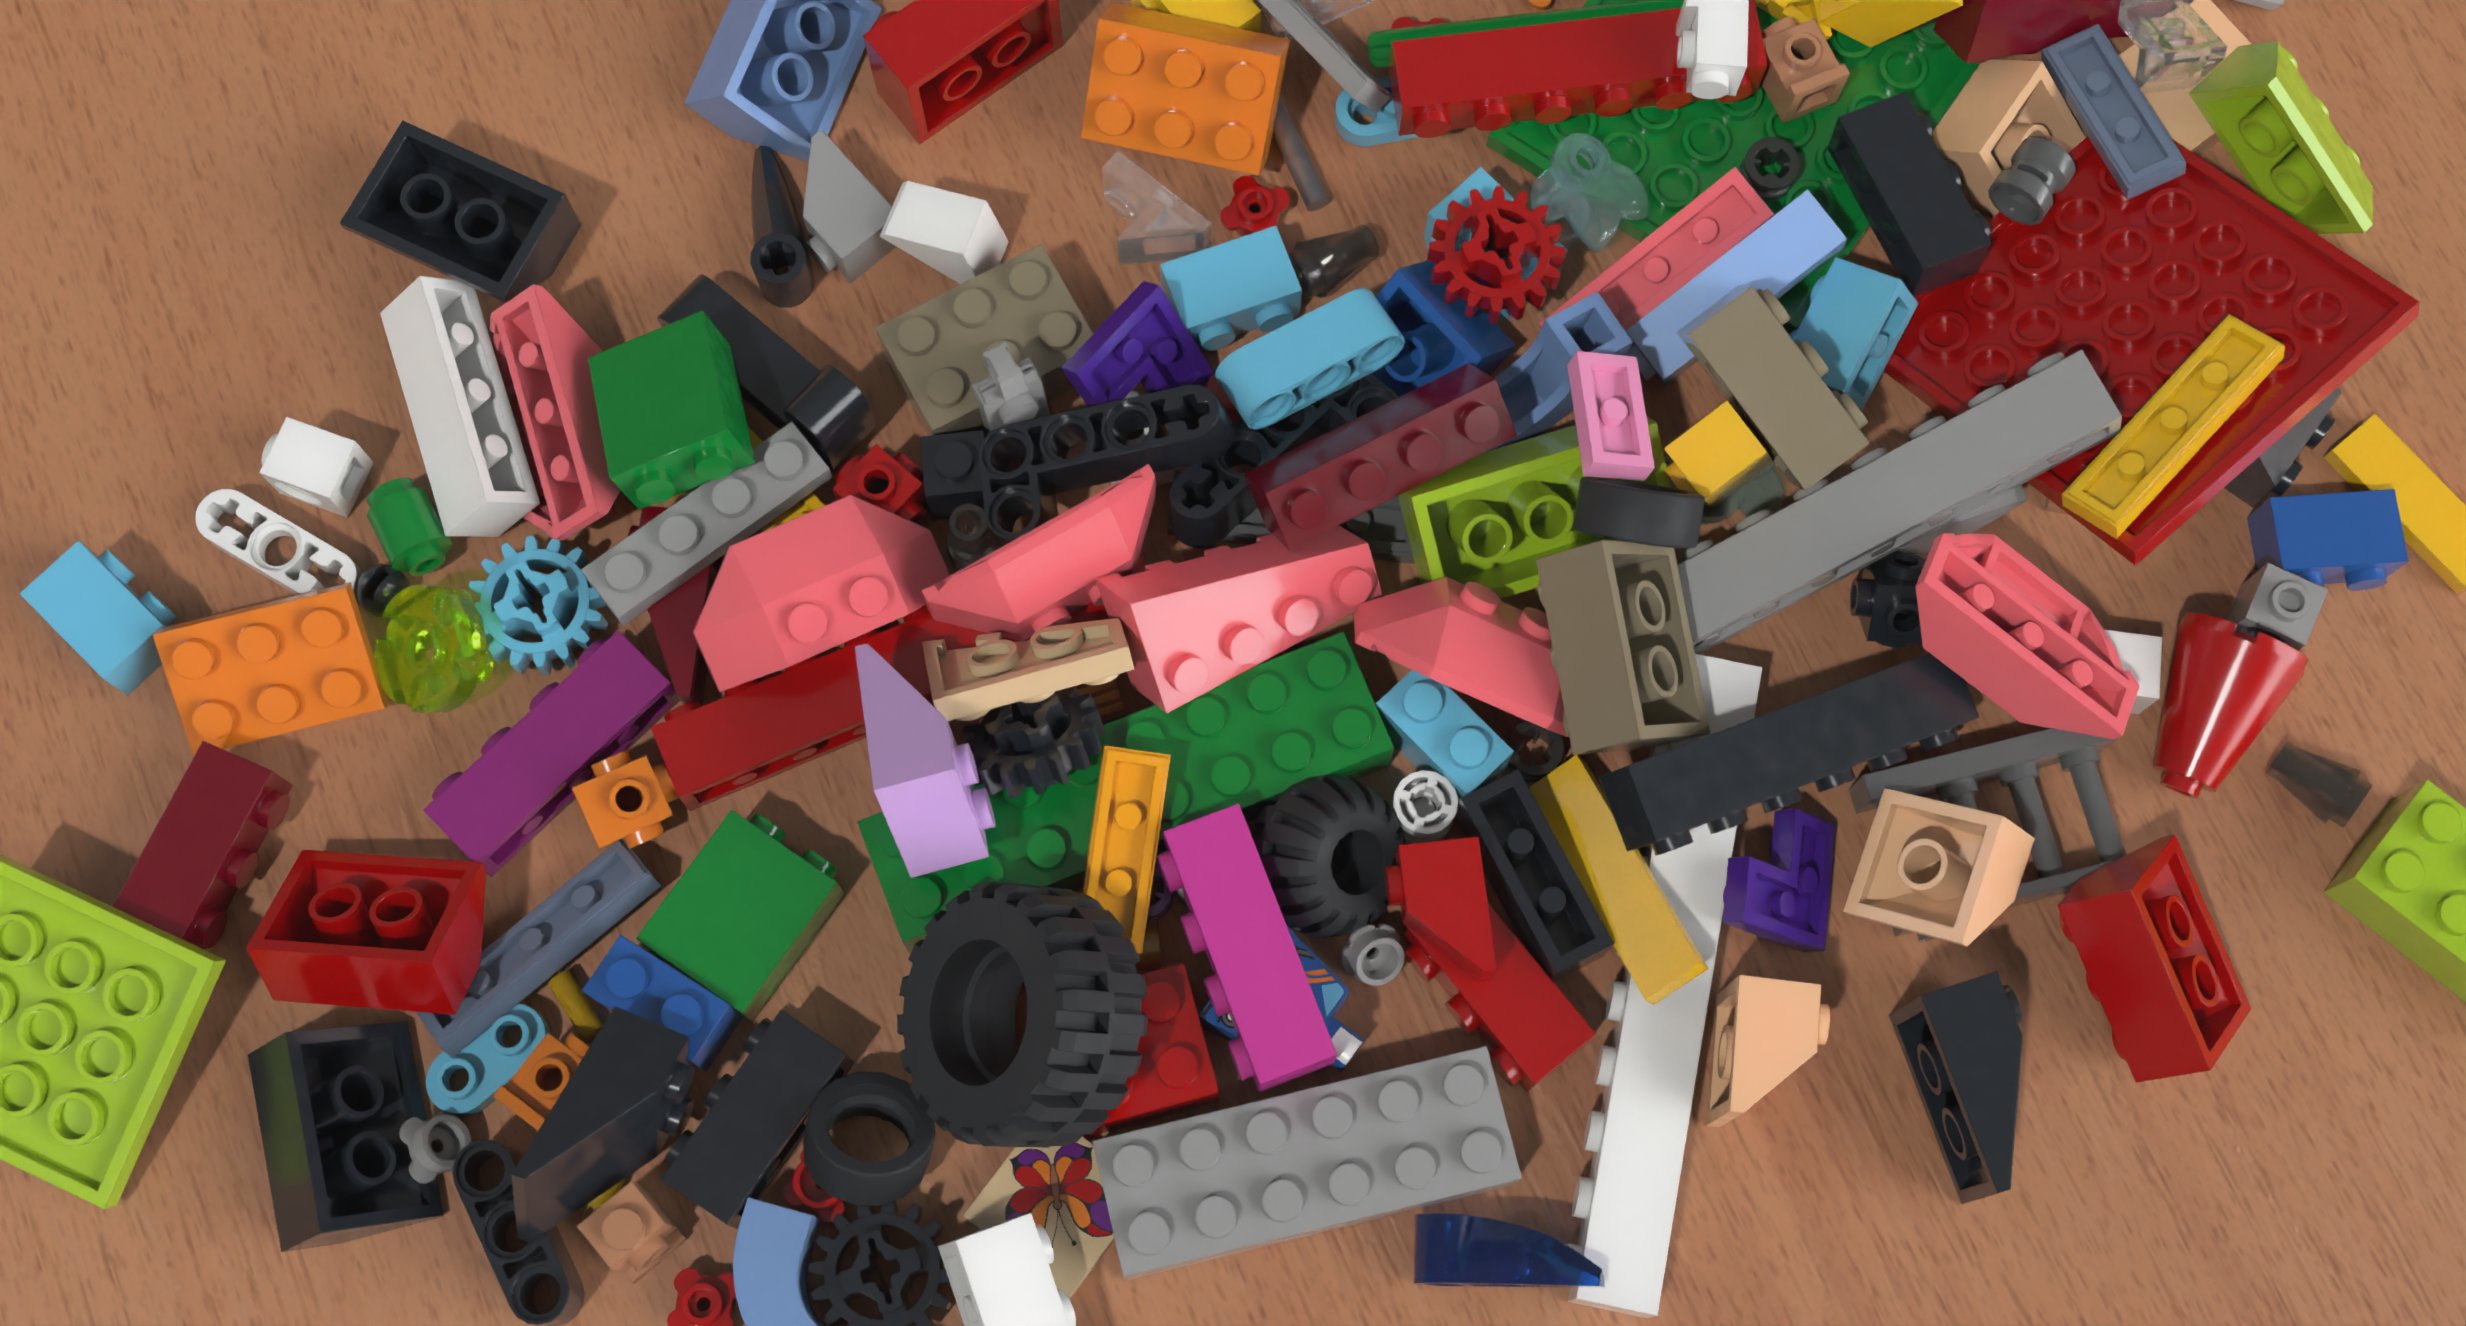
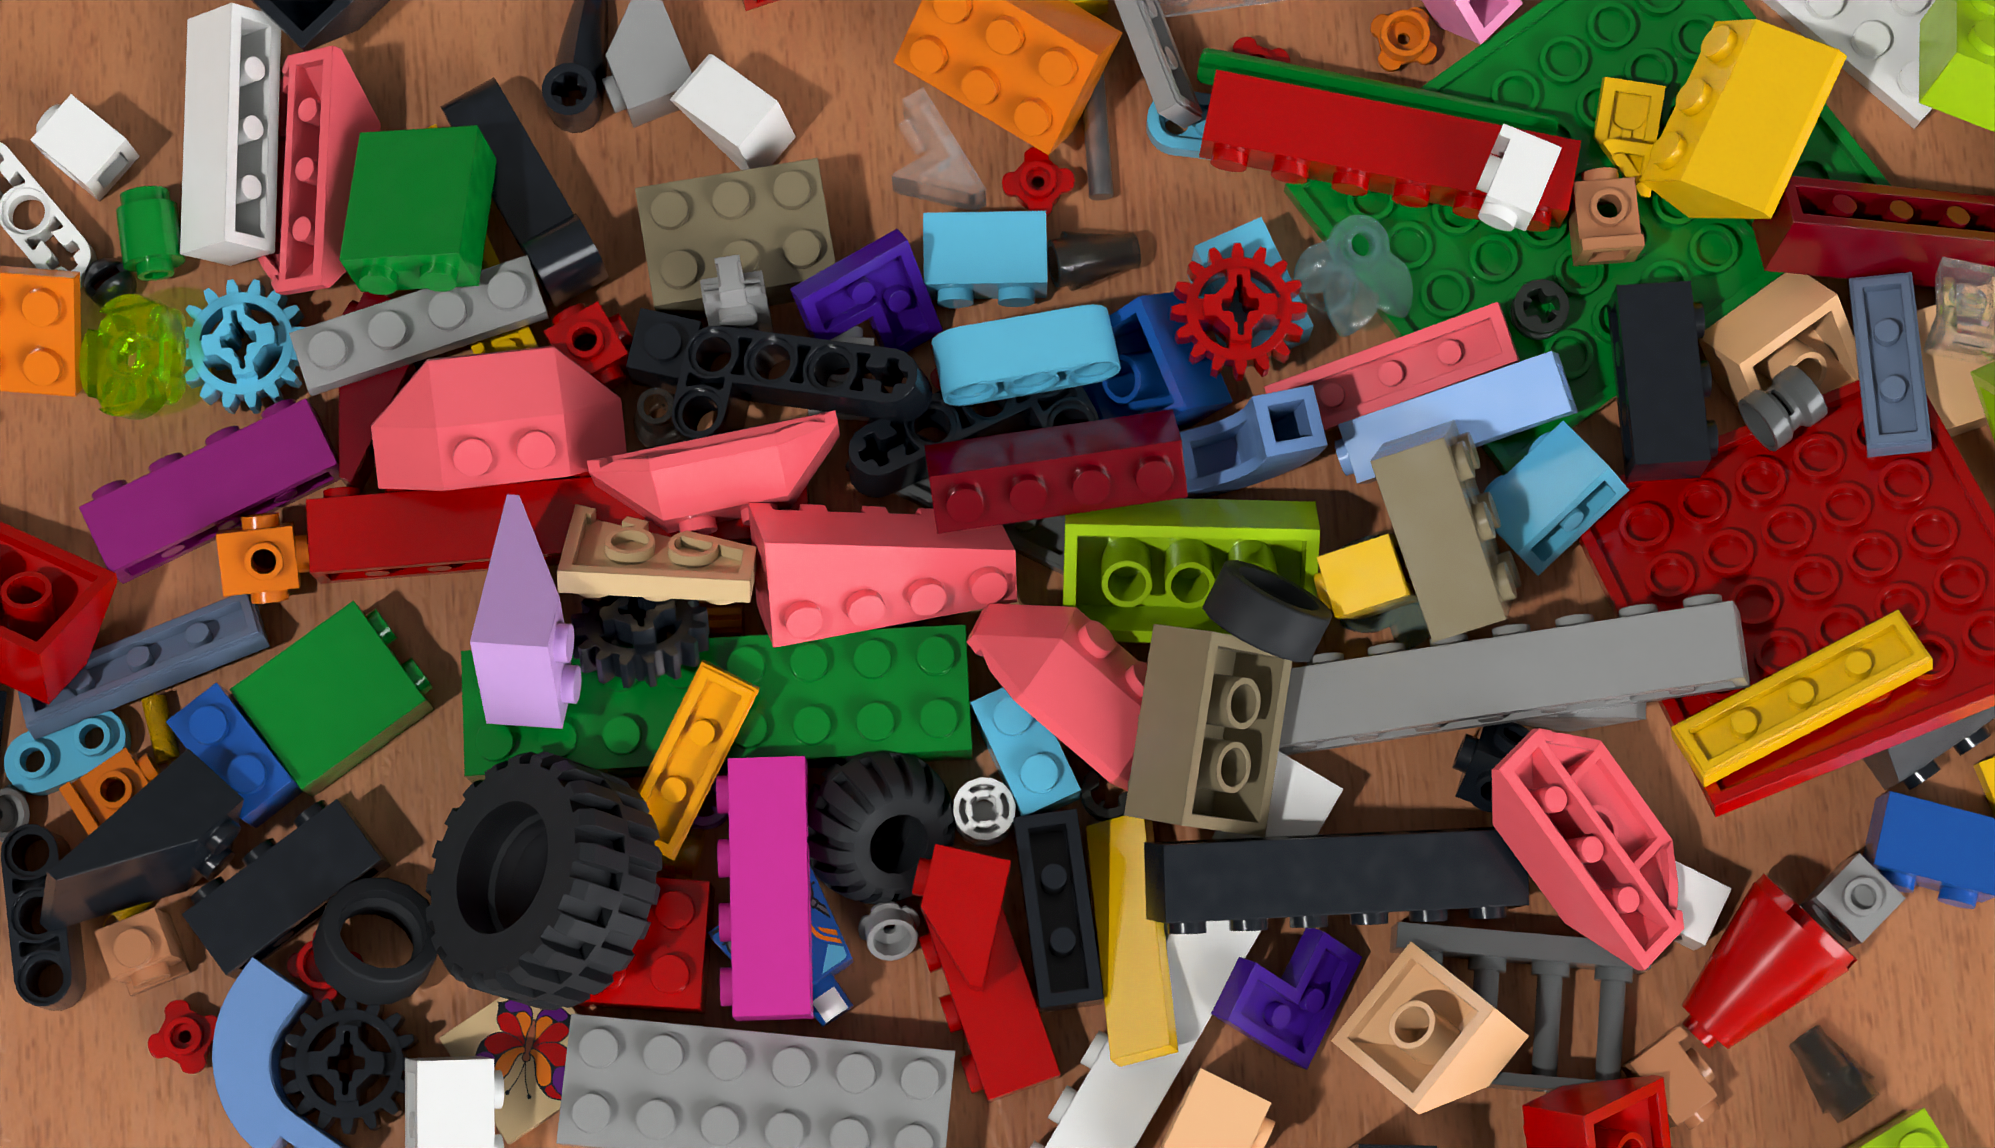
camera: 20 degrees right, 5 degrees up
(1610, 416) = (1273, 512): bright pink plate -> none
(2193, 827) = (1685, 1078): none -> nougat brick

